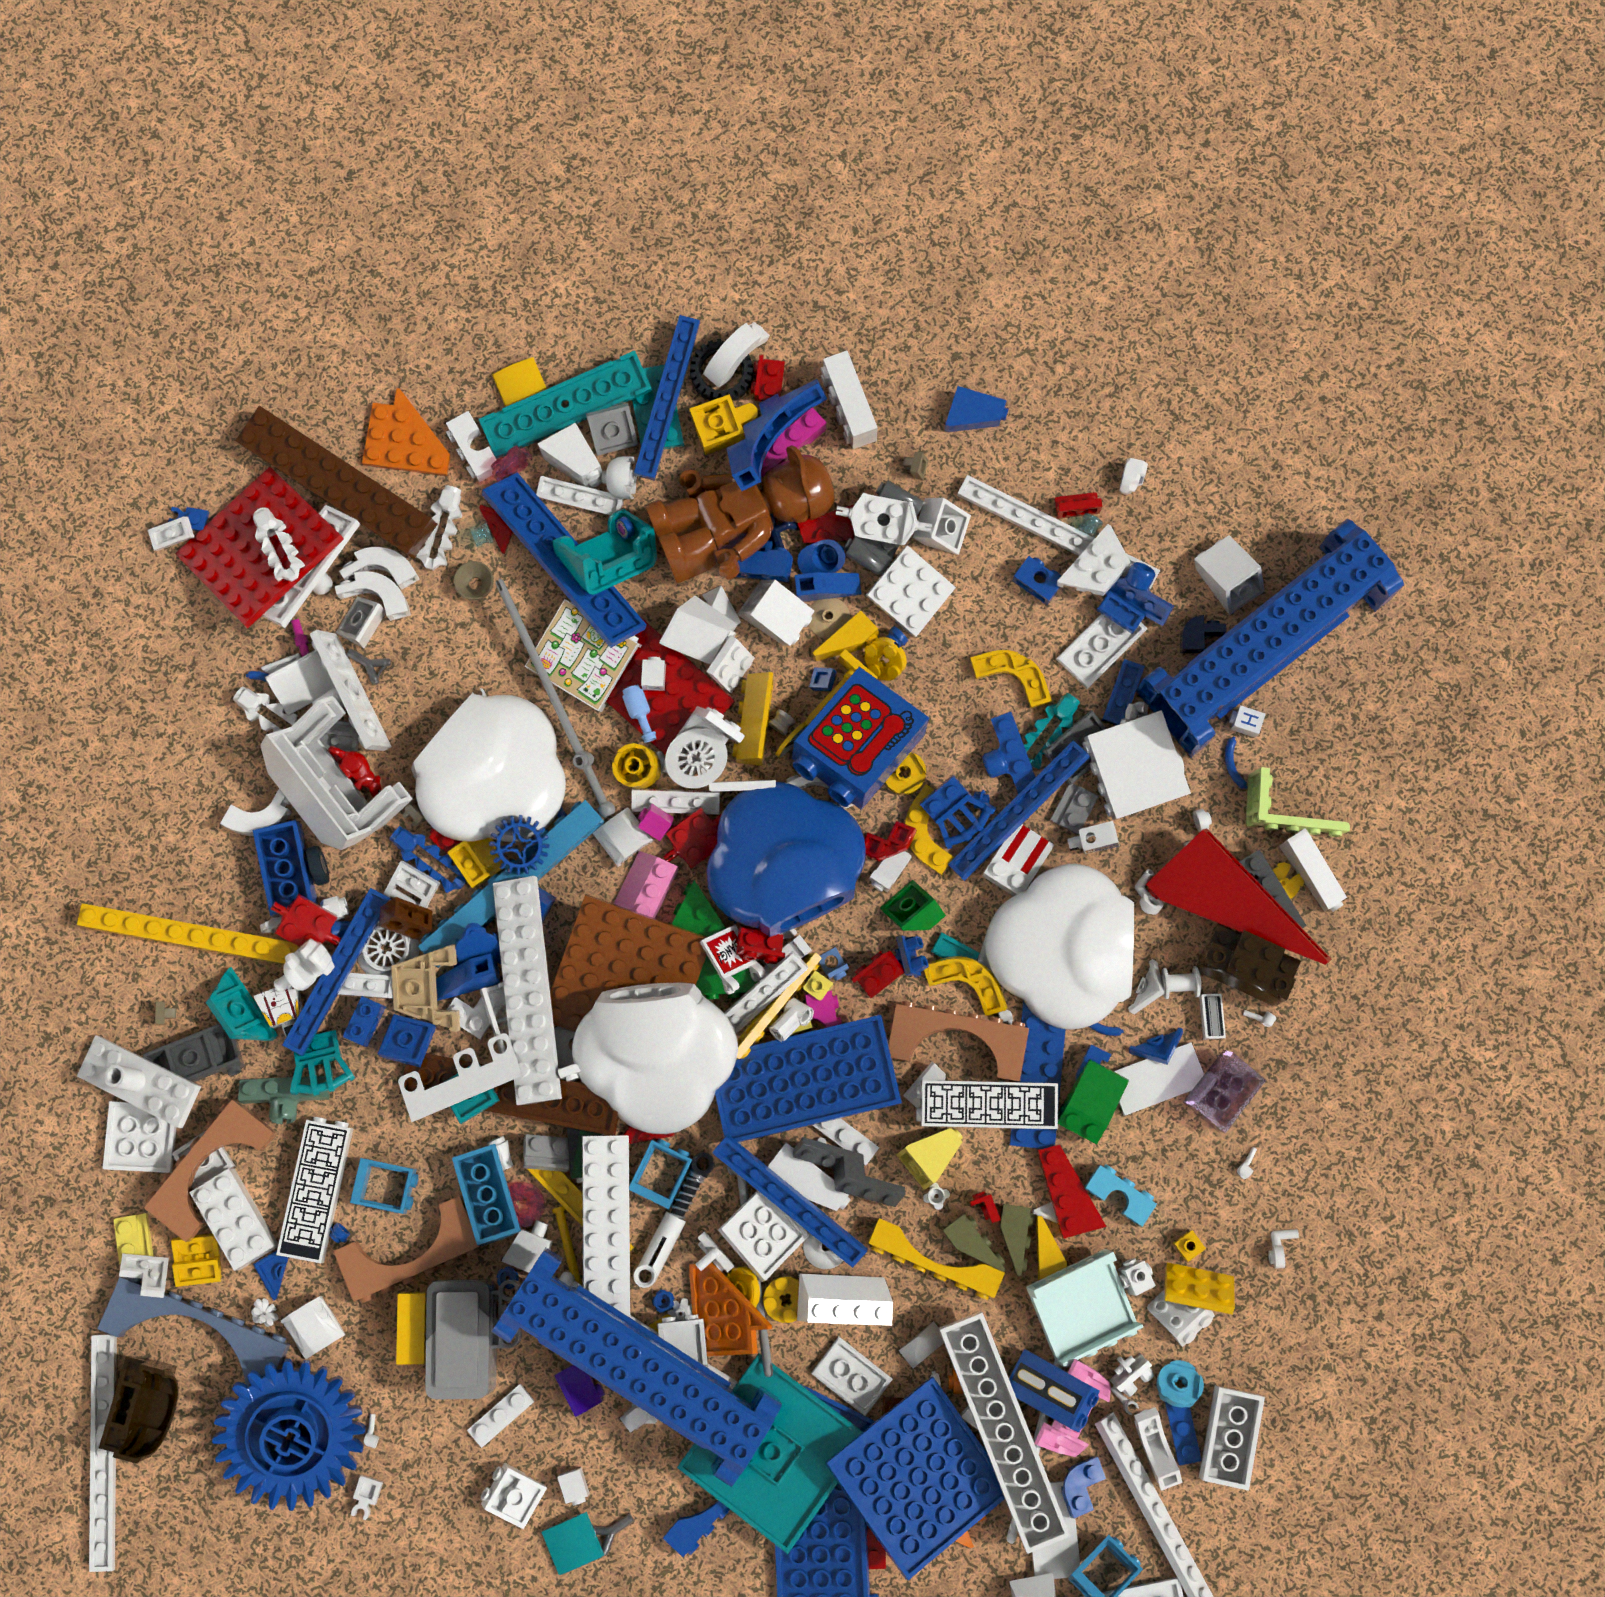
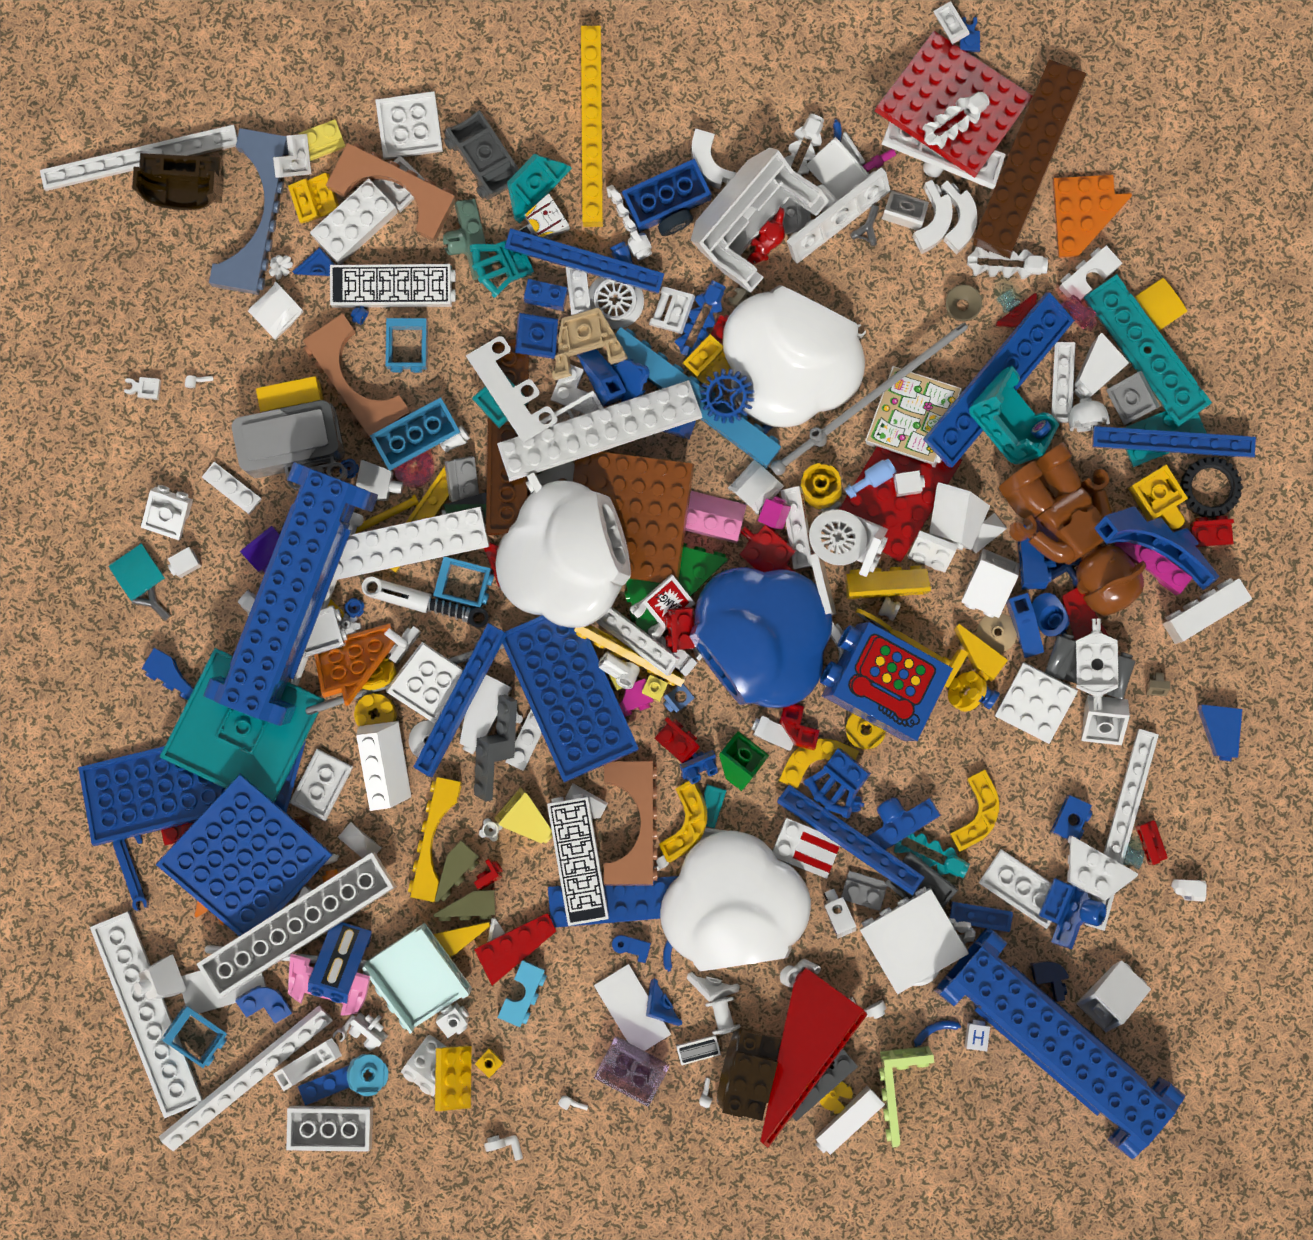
camera: 80 degrees right, 5 degrees up
(139, 1081) = (455, 112): white plate -> none
(163, 1013) = (519, 118): dark tan tile -> none
(305, 921) = (619, 224): red plate -> none
(305, 966) = (582, 232): white piece -> none
(310, 1455) = (207, 308): blue gear -> none
(405, 918) = (643, 310): reddish brown brick -> none
(733, 352) = (1232, 495): white arch -> none
(822, 679) = (937, 638): blue plate -> none
(1092, 1101) = (599, 953): green slope -> none

